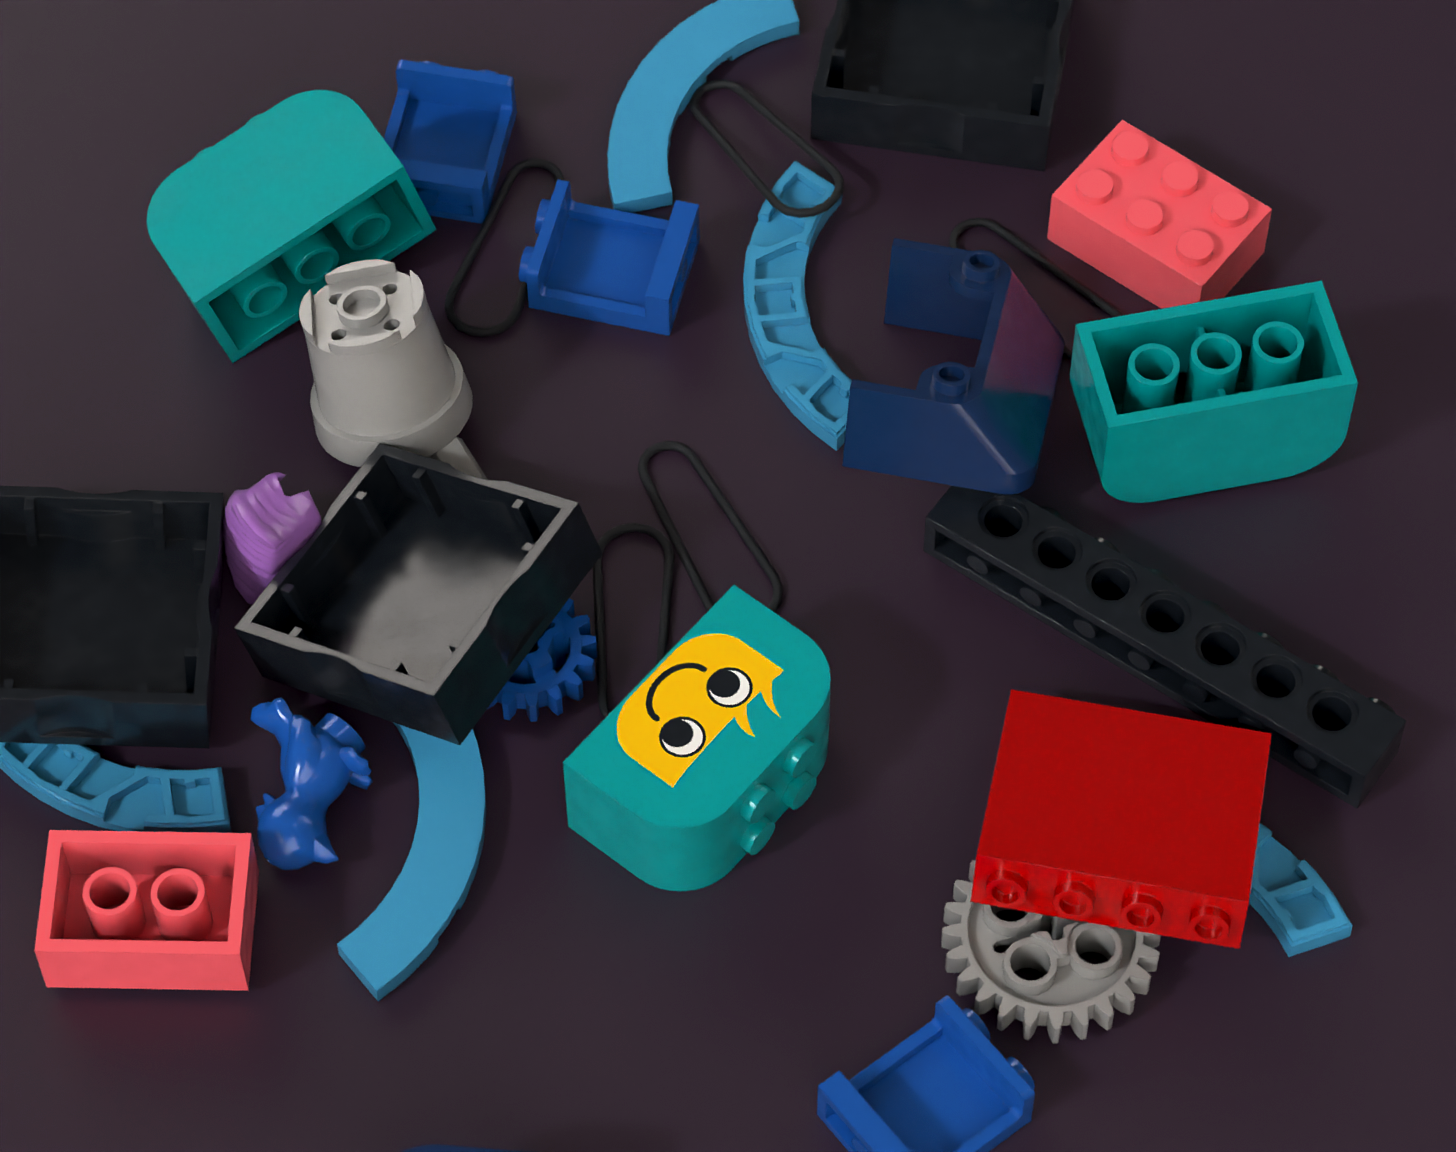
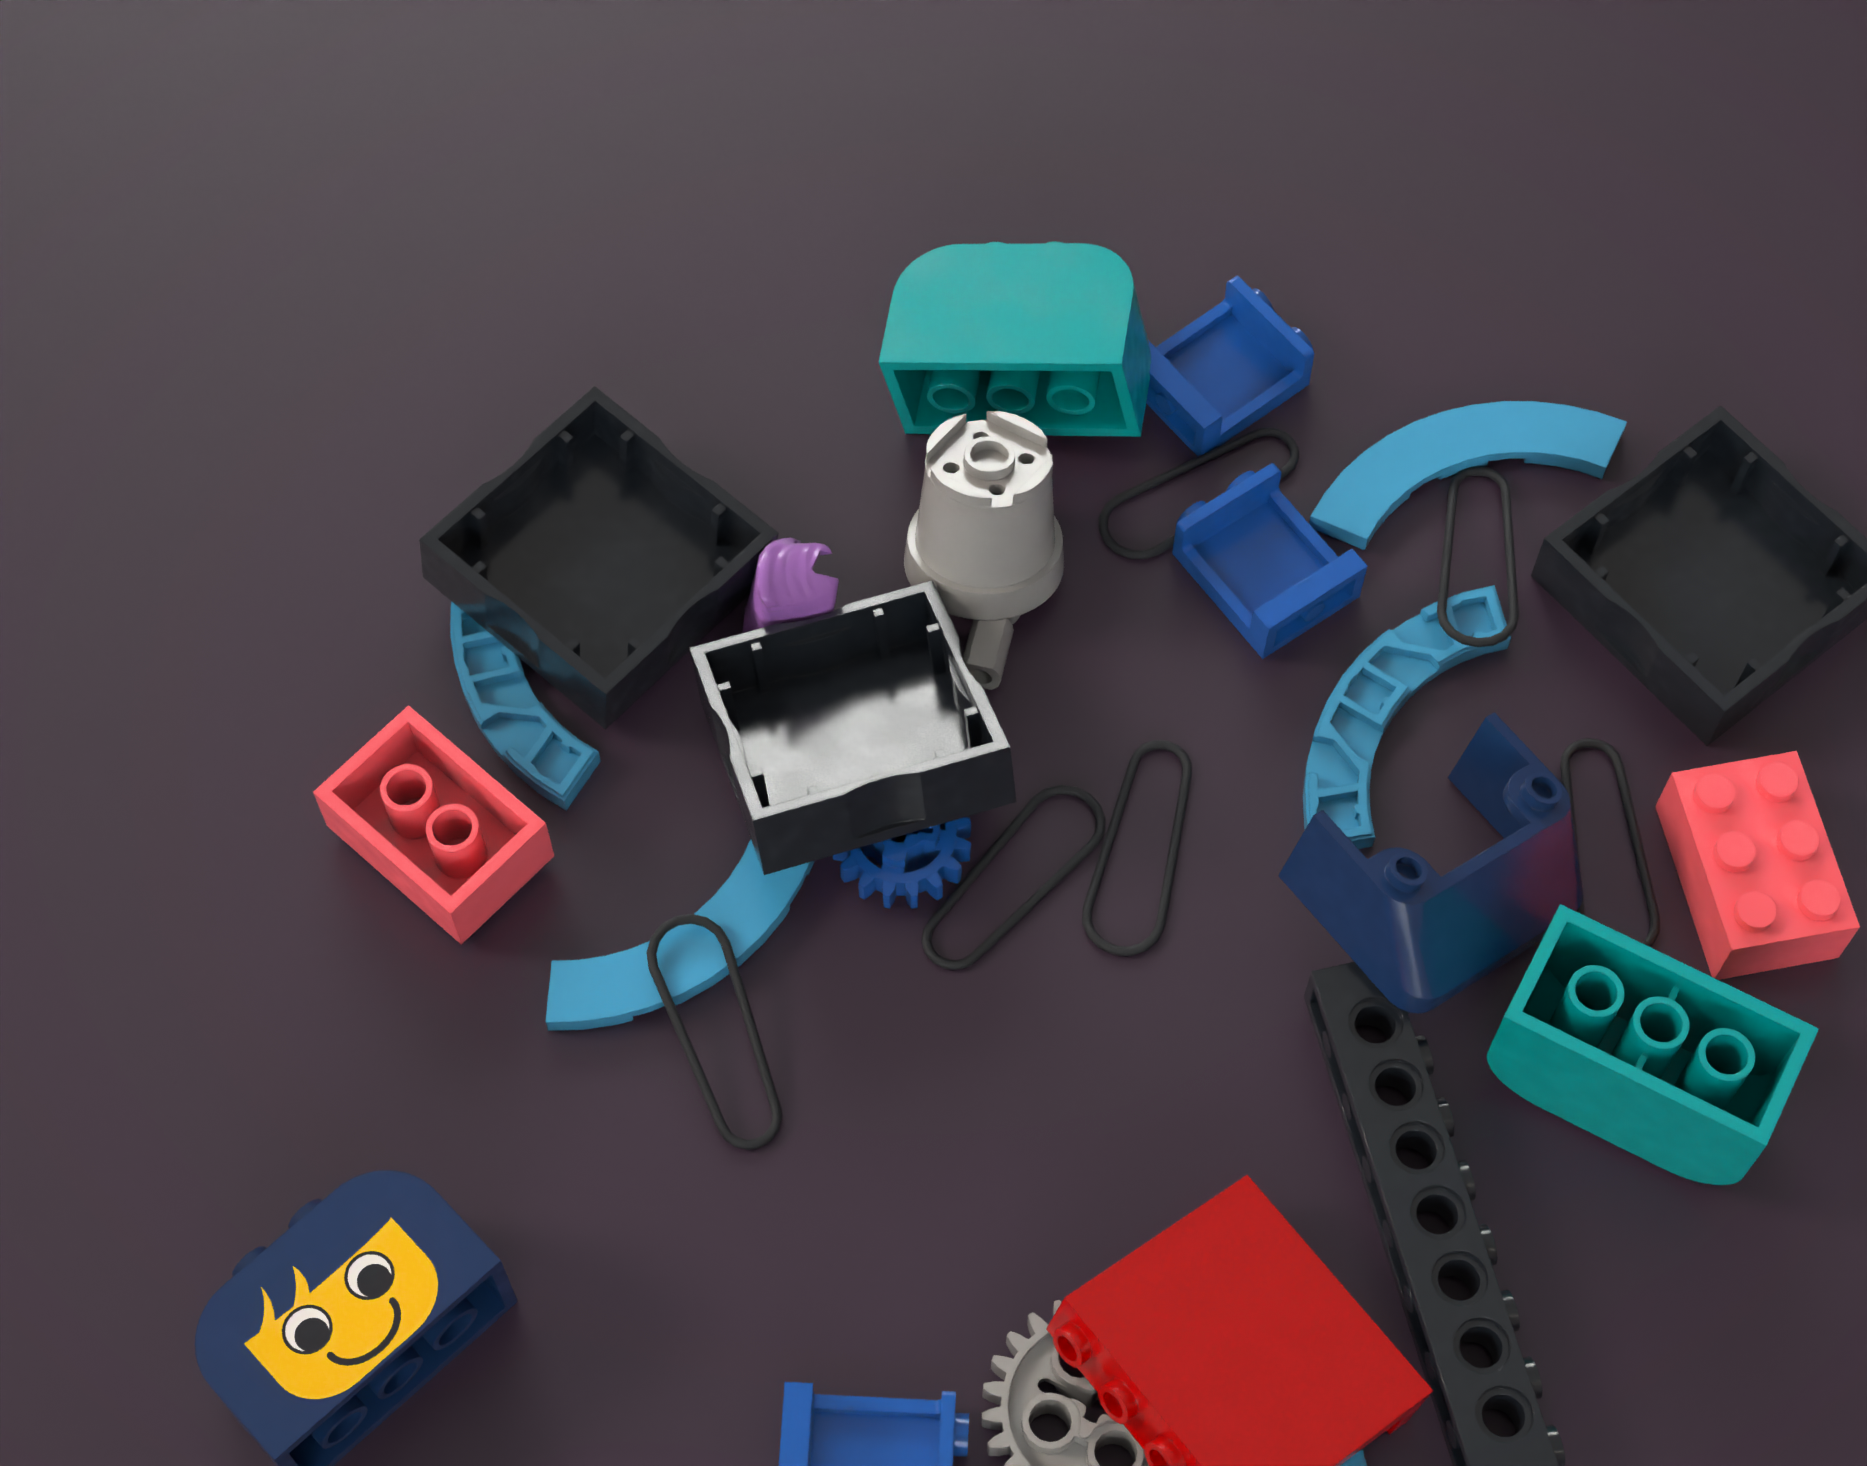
camera: 40 degrees right, 5 degrees up
(315, 771) = (654, 812): blue animal -> none
(502, 923) = (687, 1045): none -> black piece
(705, 749) = (958, 1028): teal brick -> none

